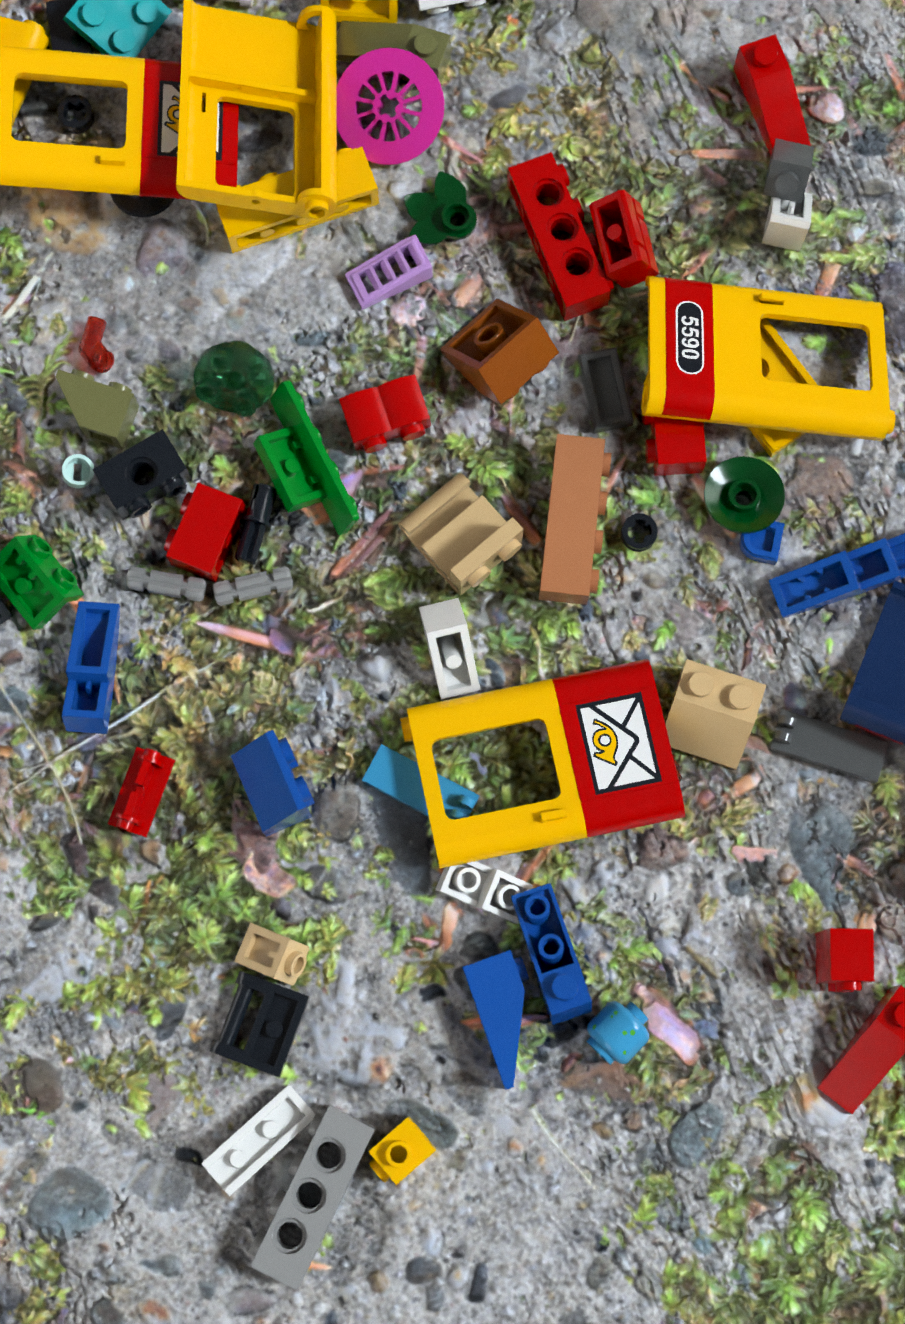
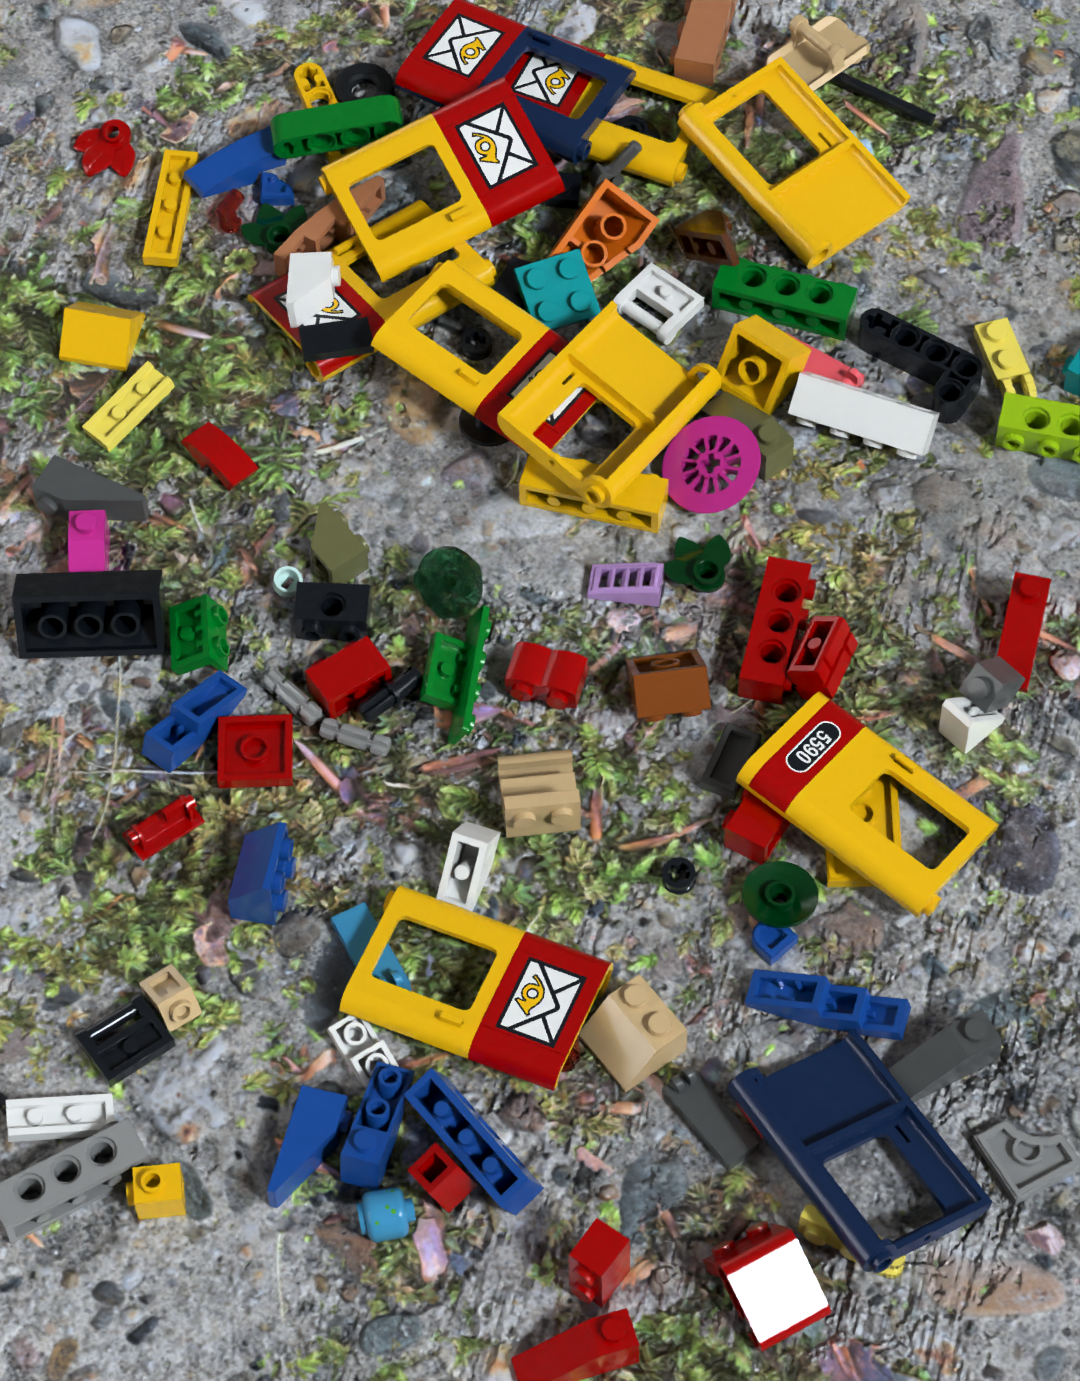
camera: 35 degrees right, 20 degrees down
(92, 348) = (363, 506): clear red arm -> none
(172, 660) = (255, 751): none -> red plate
(572, 519) = (632, 833): nougat brick -> none
(648, 968) = (442, 1177): none -> red brick
(651, 915) = (473, 1141): none -> blue brick

